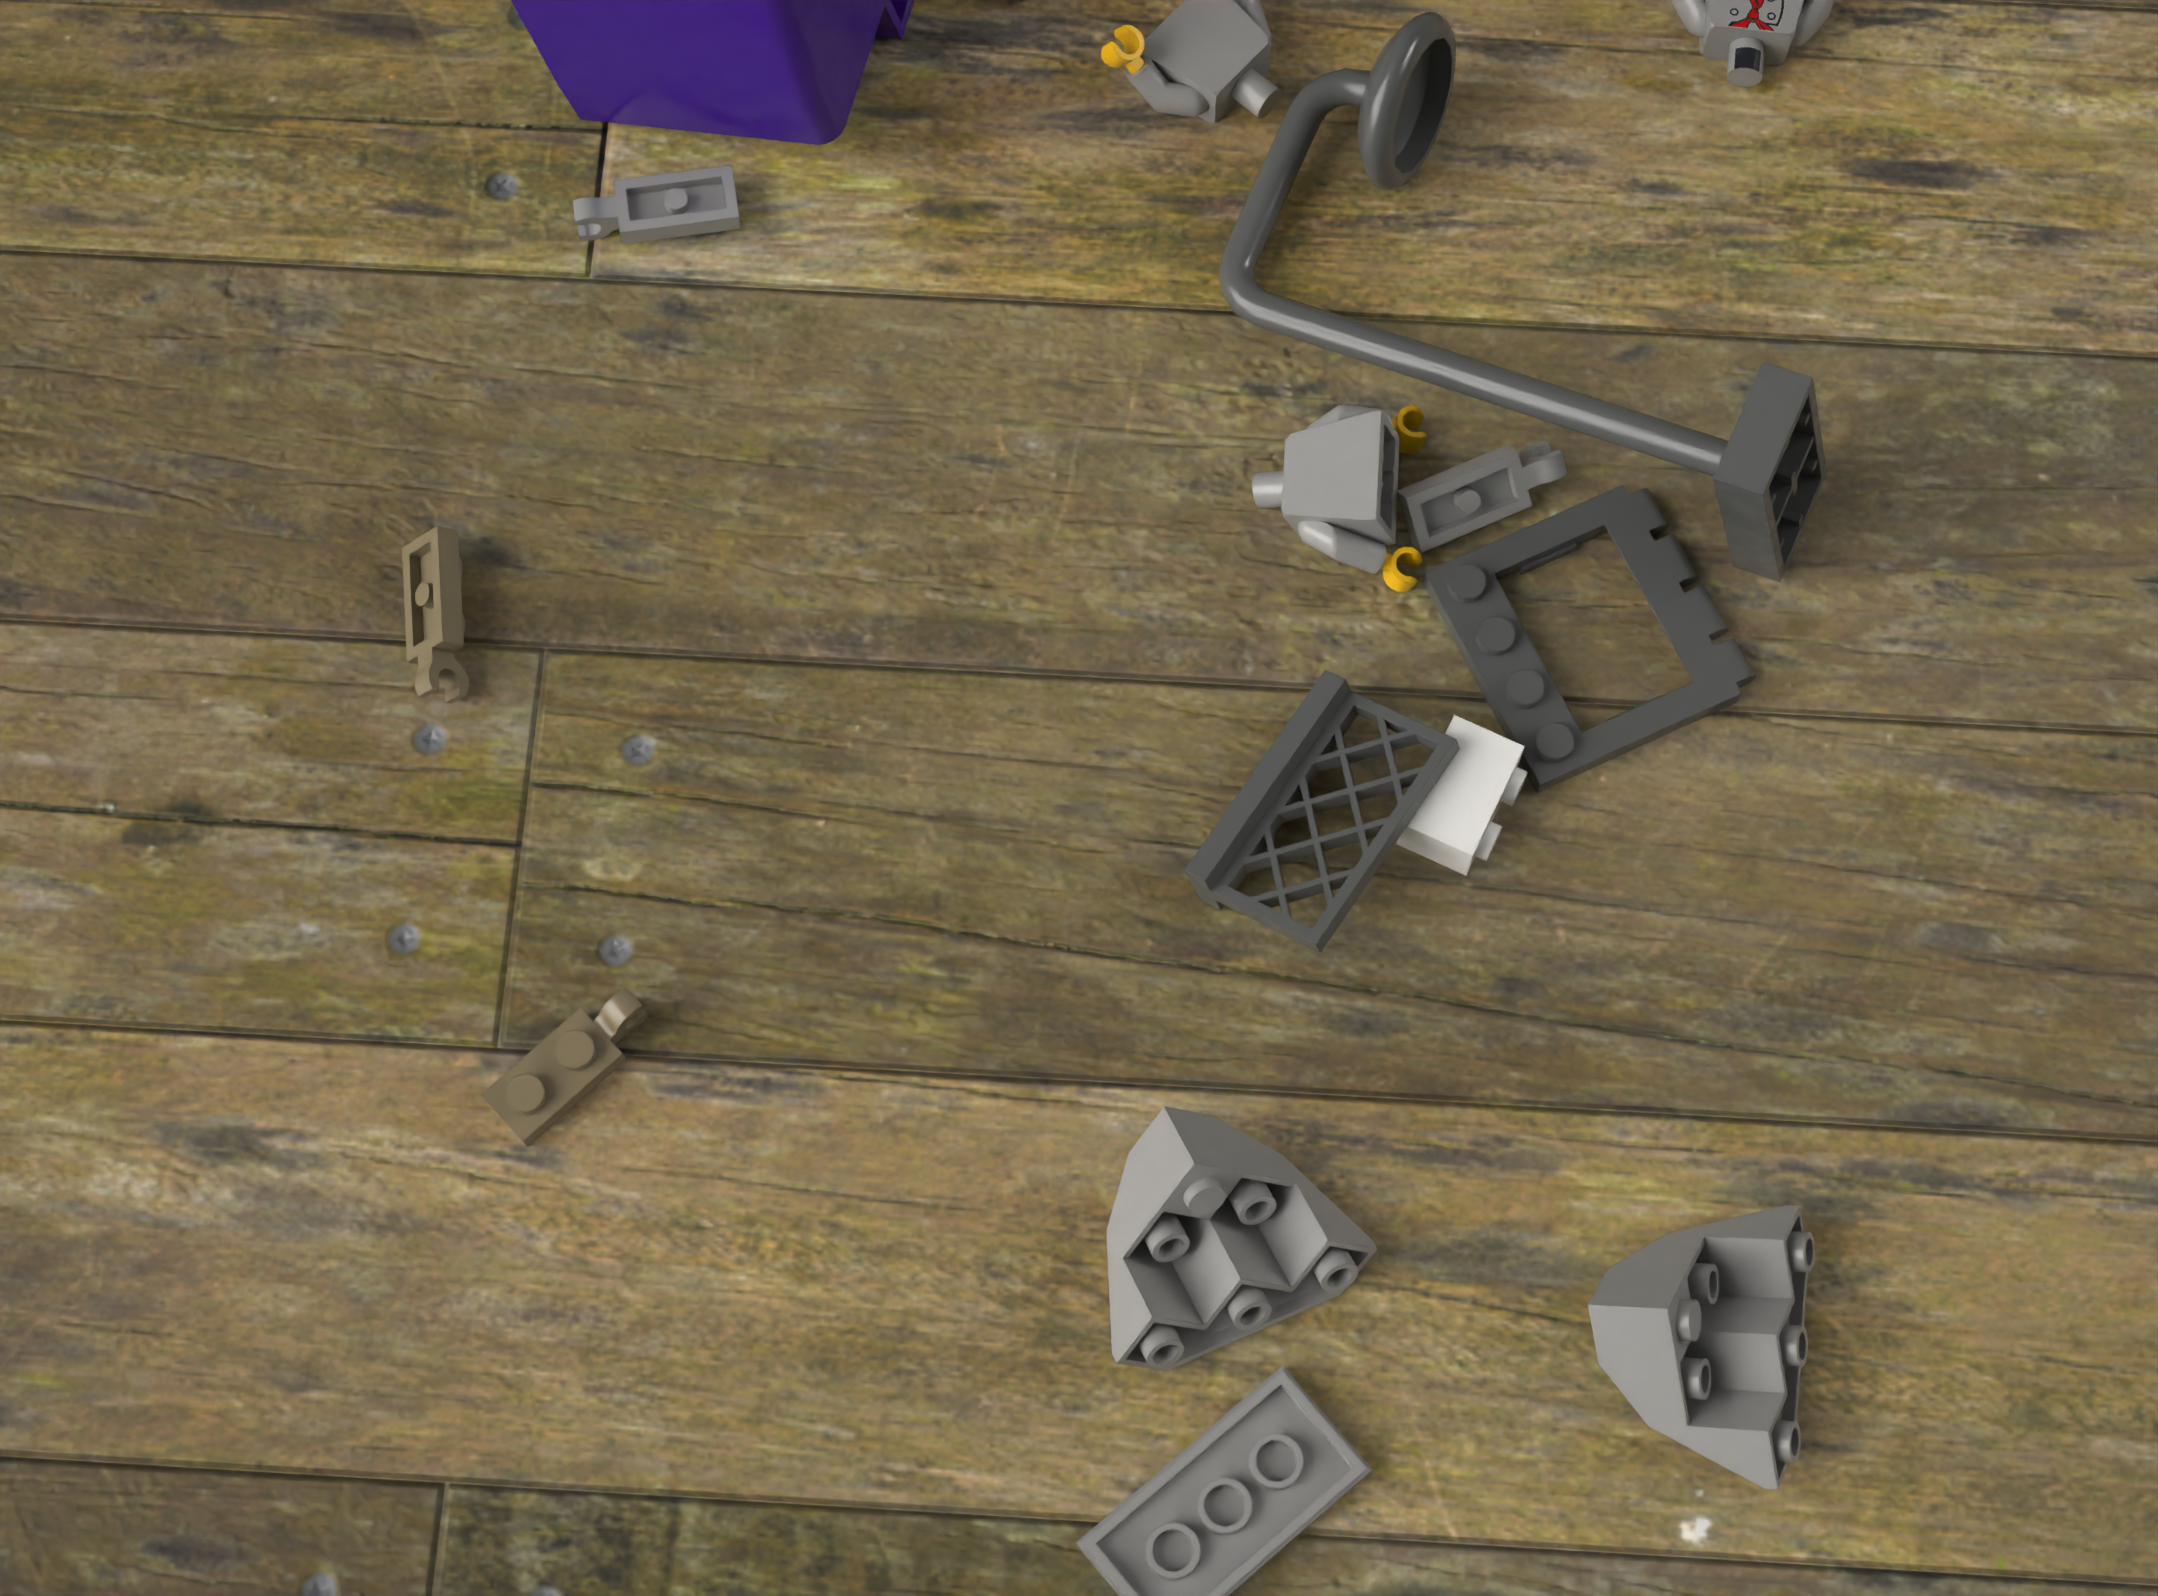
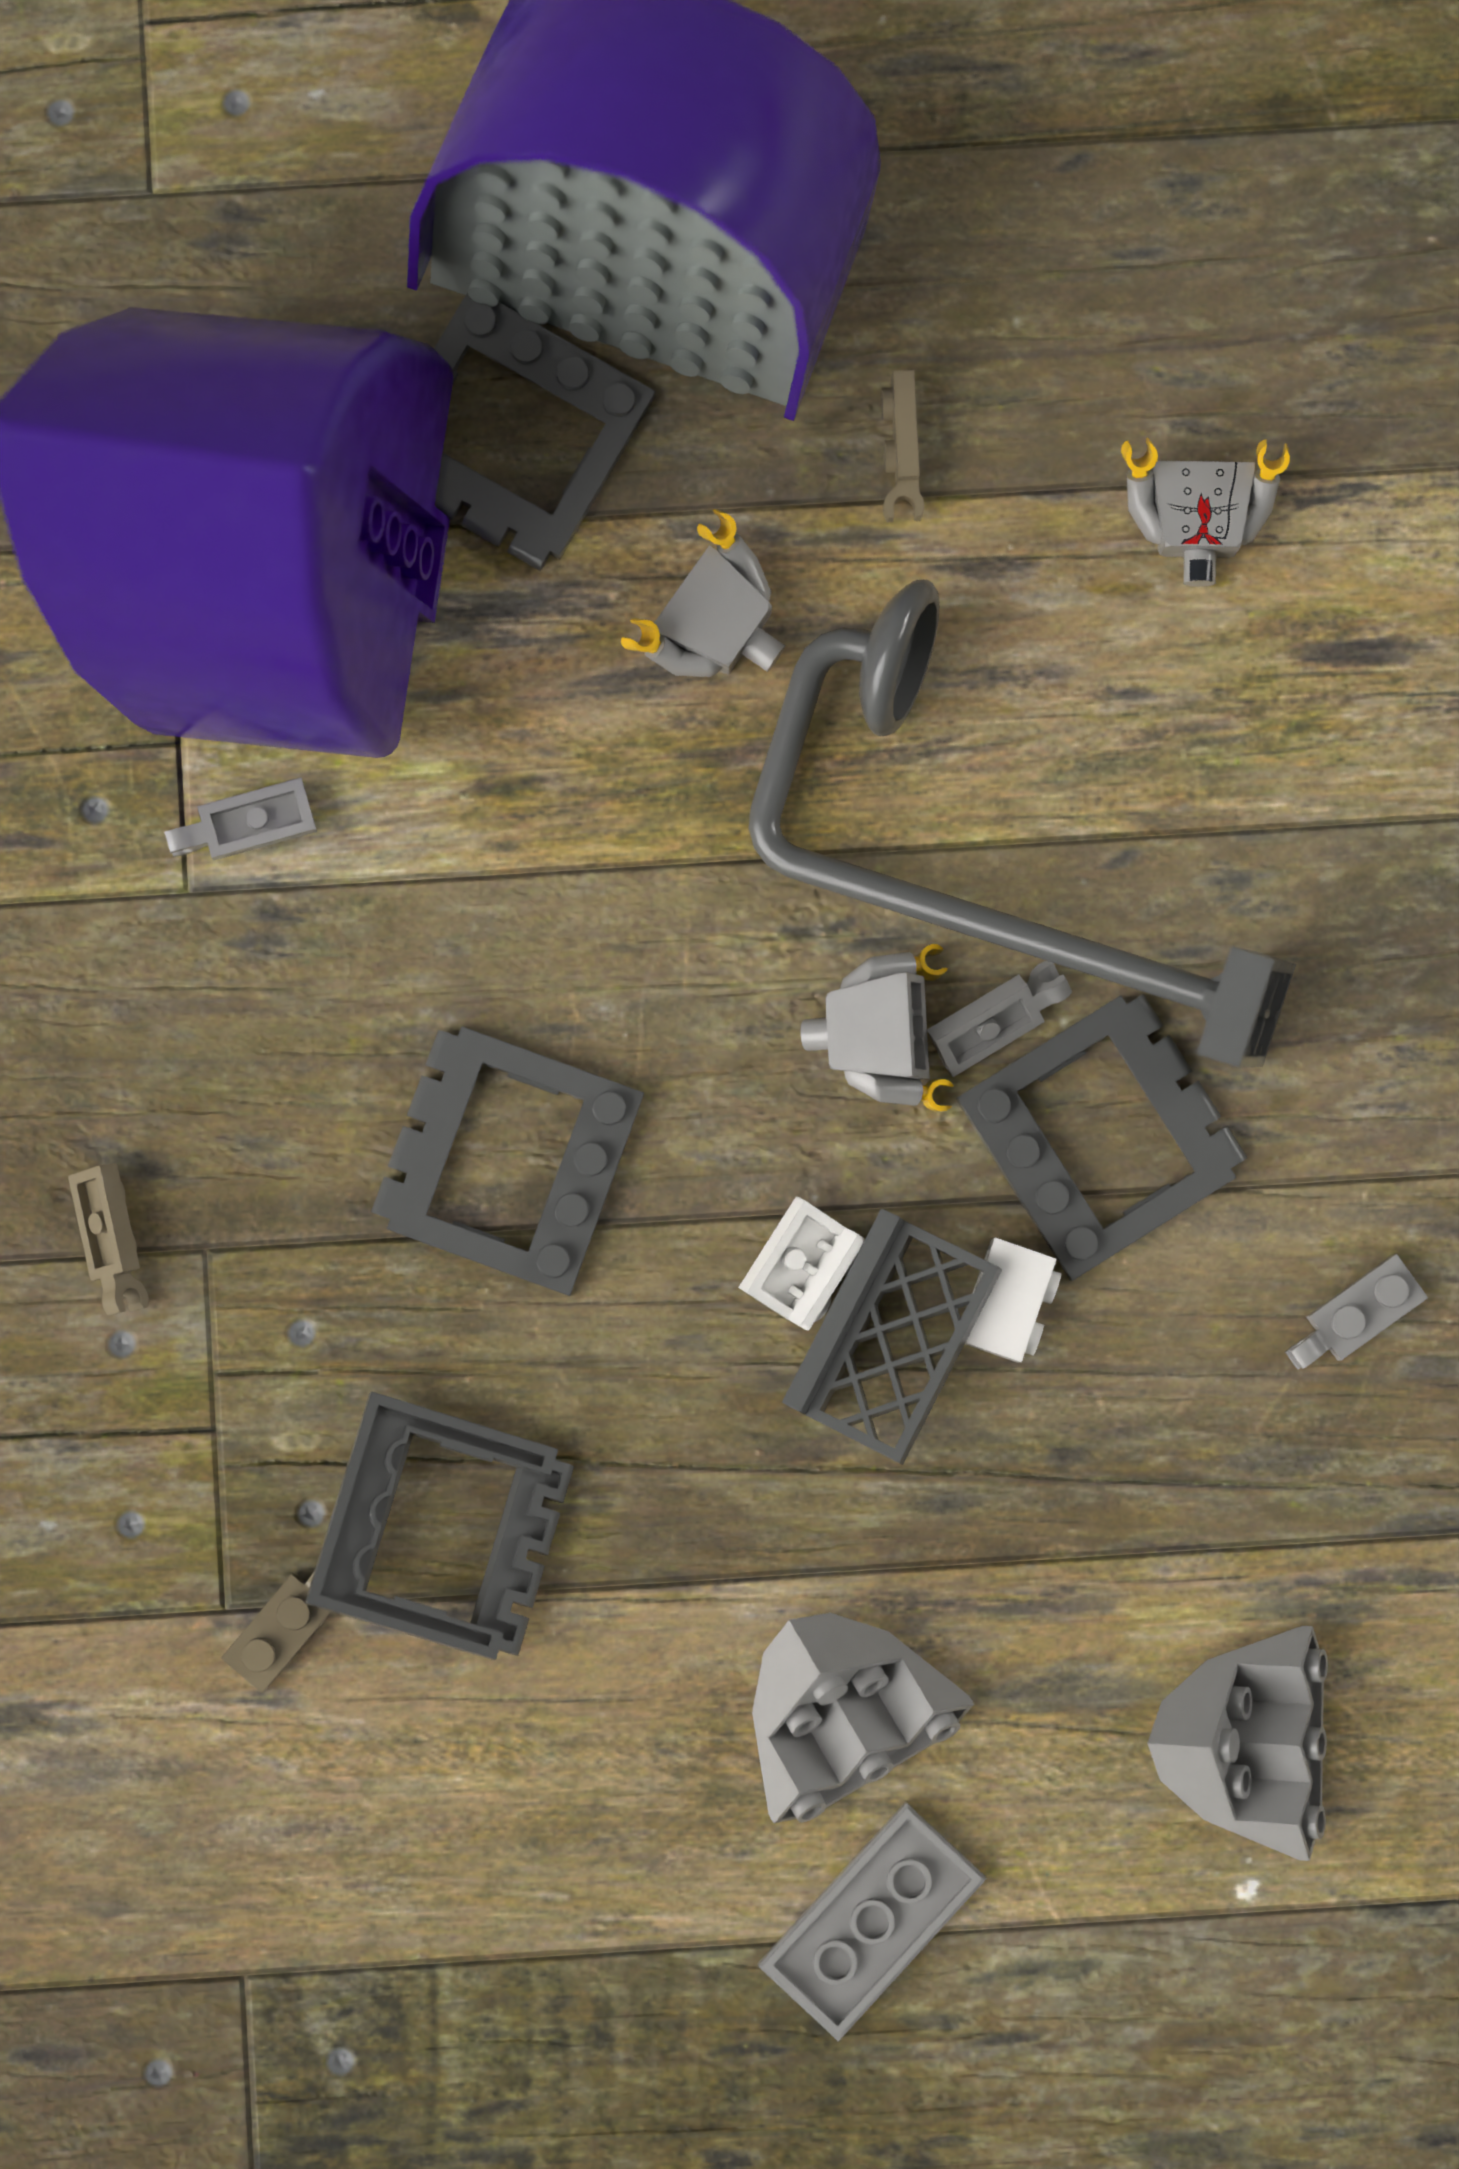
camera: 15 degrees left, 15 degrees up
(678, 932) = (364, 1508): none -> dark grey hinge
(976, 628) = (580, 1181): none -> dark grey hinge
(1224, 729) = (802, 1264): none -> white bracket
(1875, 861) = (1359, 1313): none -> light grey plate

